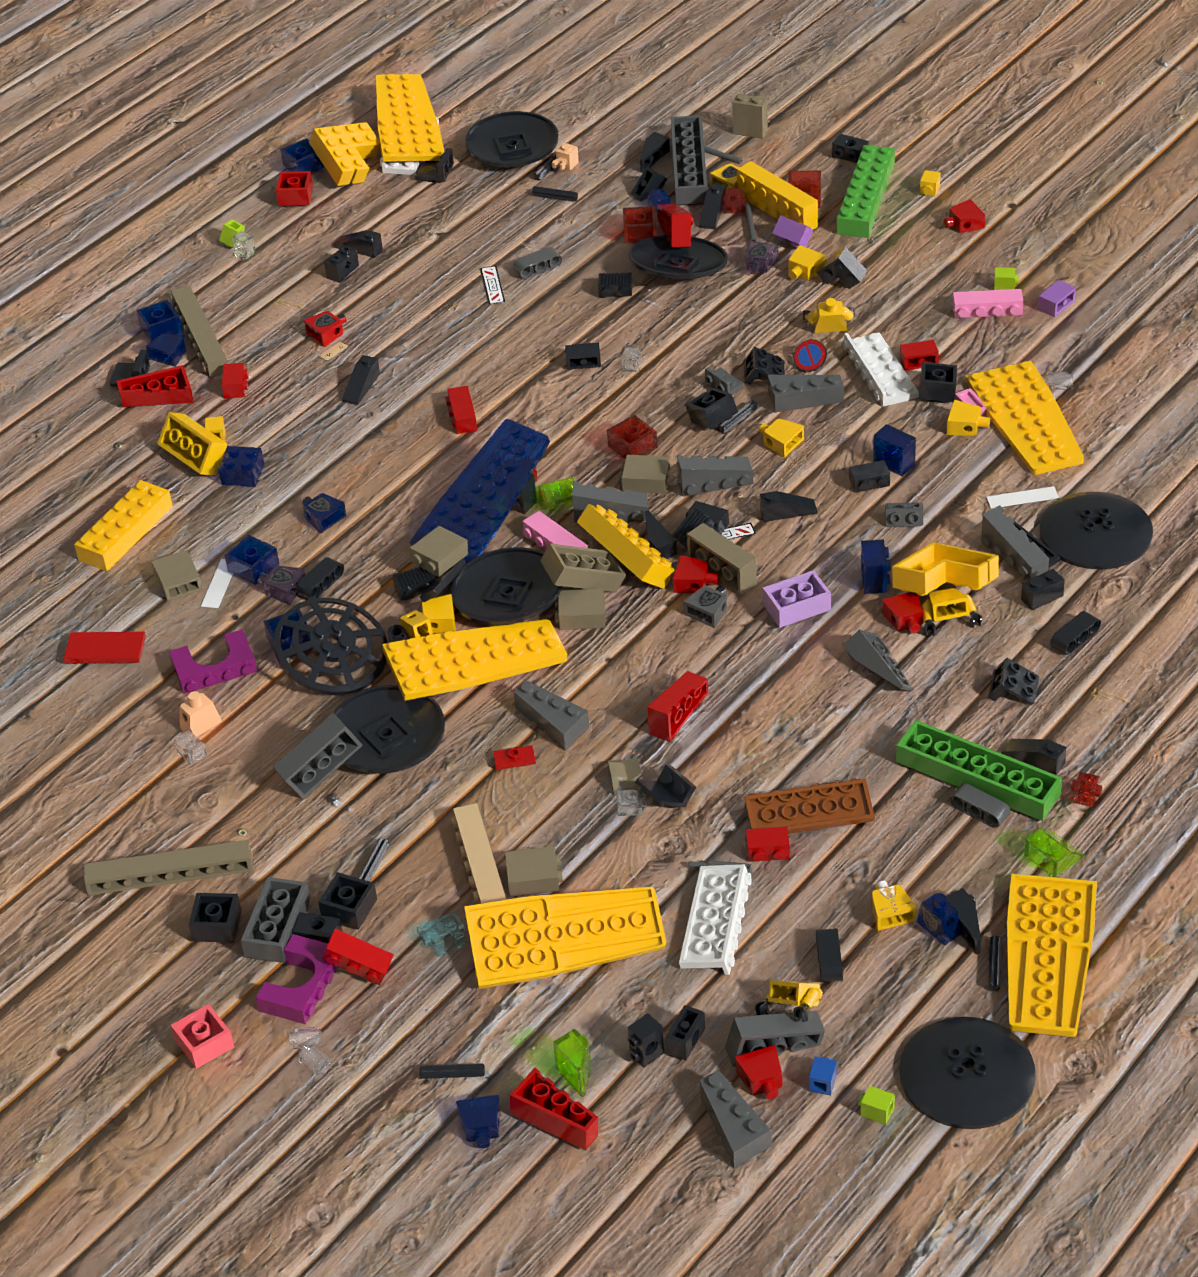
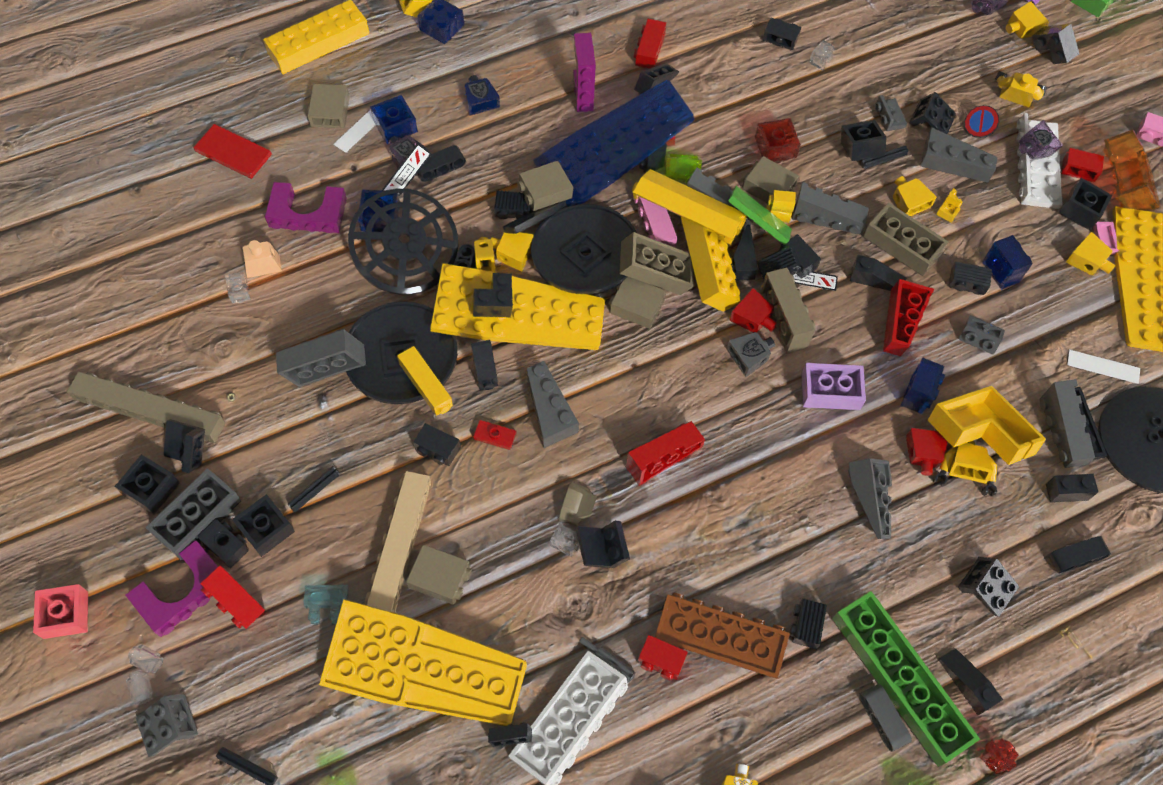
camera: 20 degrees right, 20 degrees up
(227, 873) = (184, 444): none -> black bracket
(295, 588) = (408, 168): none -> white sticker
(355, 1074) = (166, 722): none -> dark grey bracket
(422, 461) = (585, 72): none -> magenta arch
(427, 734) = (425, 381): none -> yellow brick
(452, 647) = (494, 301): none -> black brick
(466, 783) = (436, 445): none -> black brick
(473, 703) = (484, 365): none -> black slope
(481, 434) = (654, 76): none -> black slope
(584, 509) = (690, 204): none -> yellow panel
(654, 496) = (760, 215): none -> bright green tile
(667, 486) = (781, 204): none -> yellow brick
(671, 947) = (510, 735): none -> black piece
(795, 468) = (905, 239): none -> dark tan brick
(821, 431) = (950, 207): none -> yellow slope
(827, 523) = (904, 314): none -> red wedge
(870, 349) = (1039, 142): none -> clear purple torso
(877, 770) = (808, 624): none -> black brick
(963, 342) = (1133, 172): none -> clear orange windscreen

